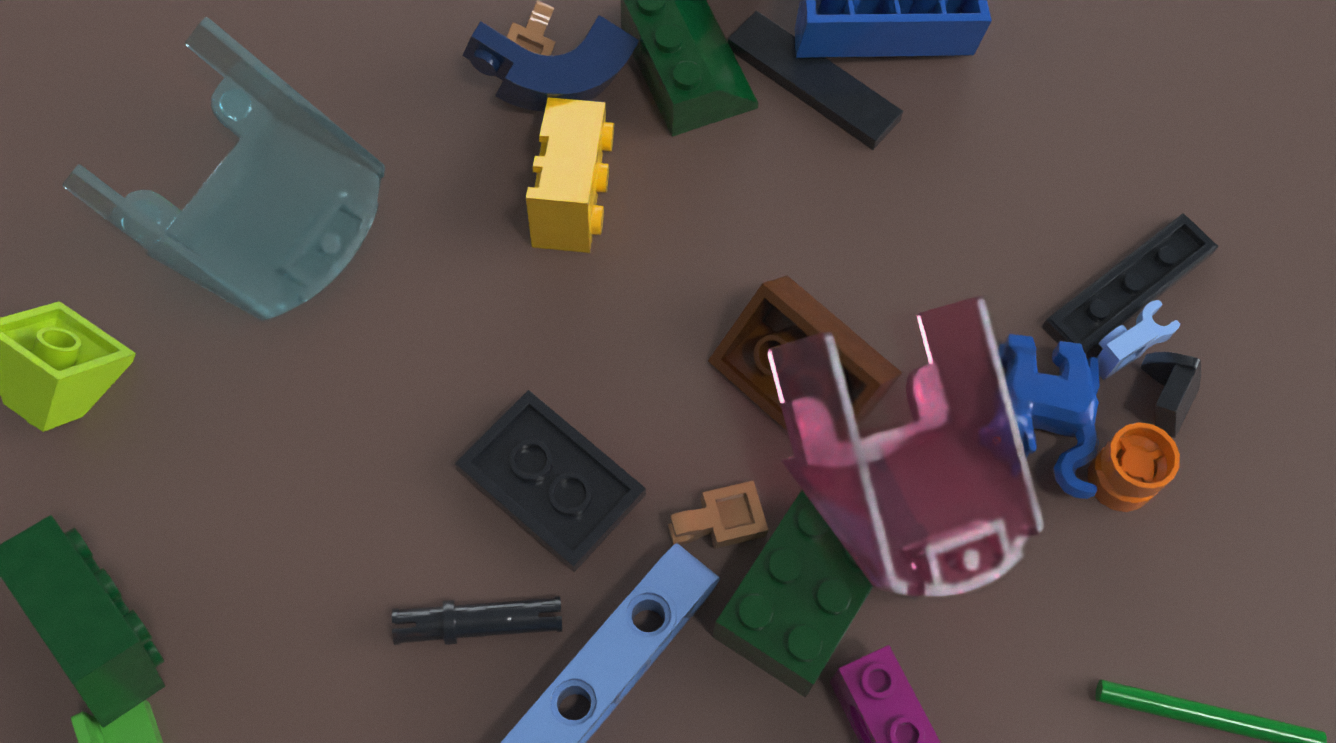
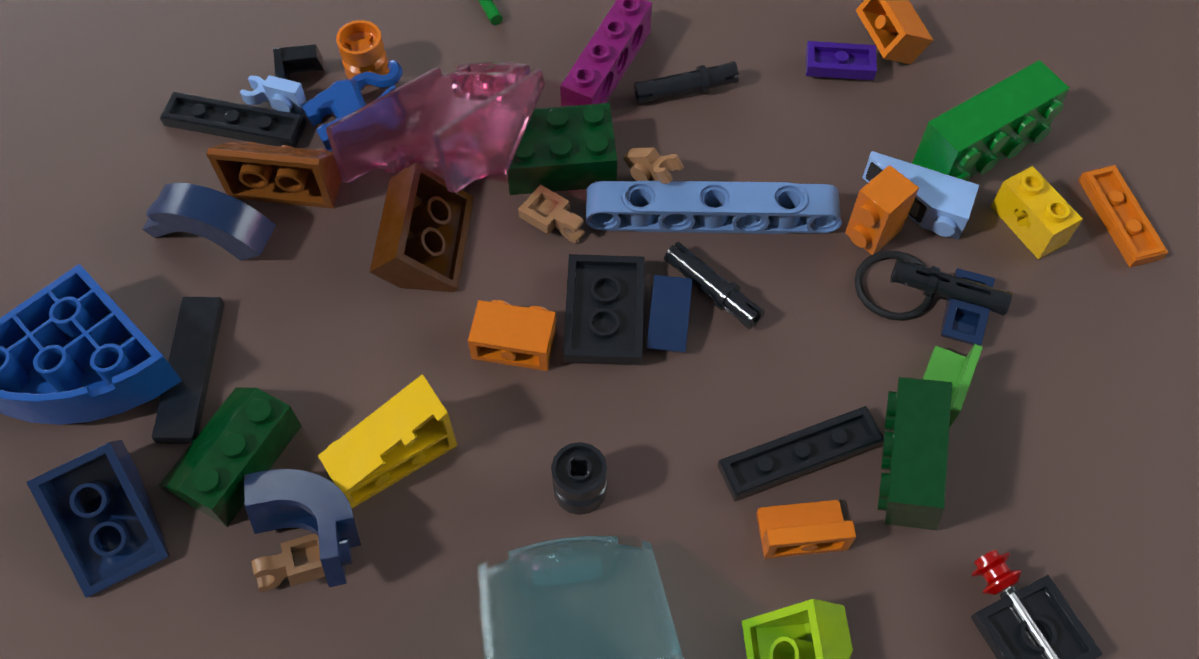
camera: 125 degrees left, 5 degrees down
(146, 473) = (804, 529): none -> orange panel
(218, 548) = (800, 453): none -> black tile
(382, 302) = (579, 478): none -> black wheel
(486, 543) = (669, 314): none -> dark blue slope
(596, 363) = (512, 334): none -> orange brick
(683, 669) = (648, 165): none -> medium nougat plate
(972, 165) = (210, 215): none -> dark blue arch
(1010, 257) = (277, 173): none -> dark orange slope

